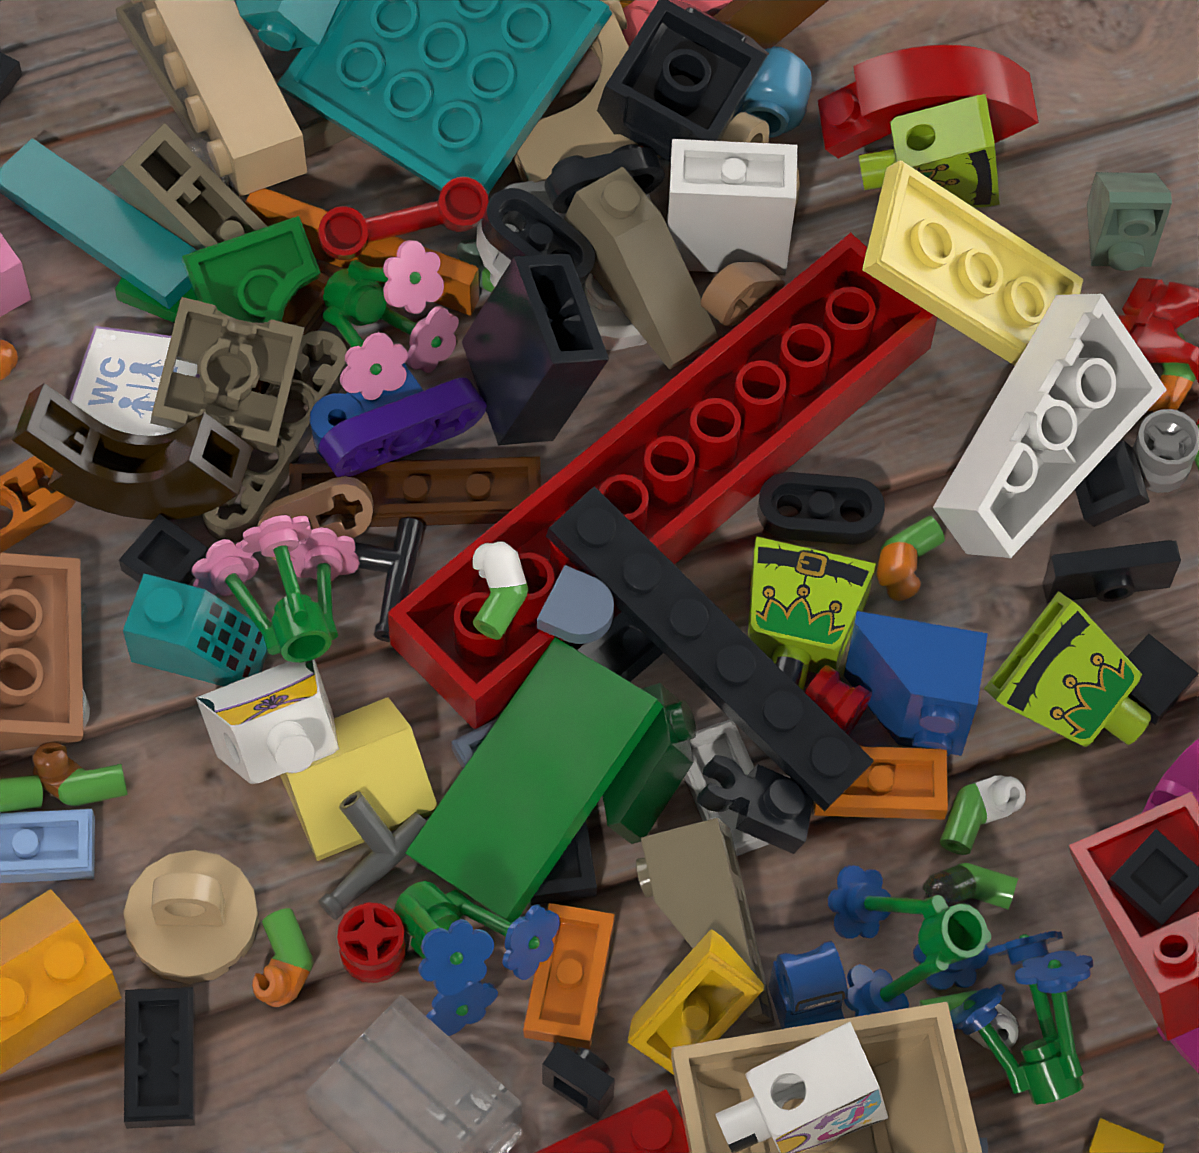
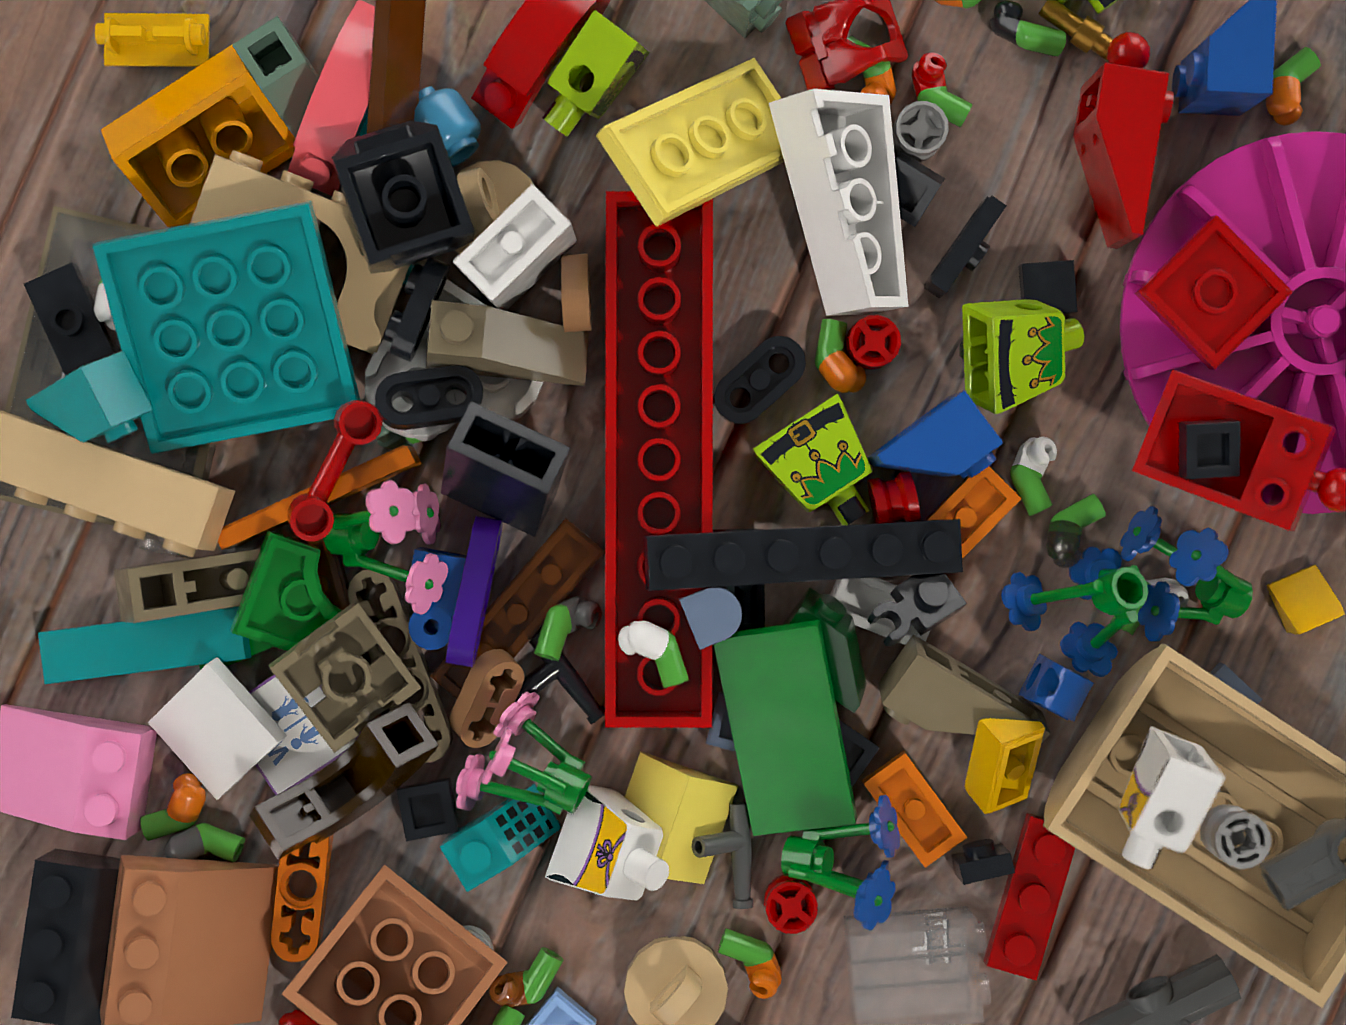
camera: 40 degrees left, 25 degrees up
(79, 329) = (217, 728): none -> white tile
(443, 524) = (563, 620): none -> arm
(955, 556) = (880, 337): none -> red wheel

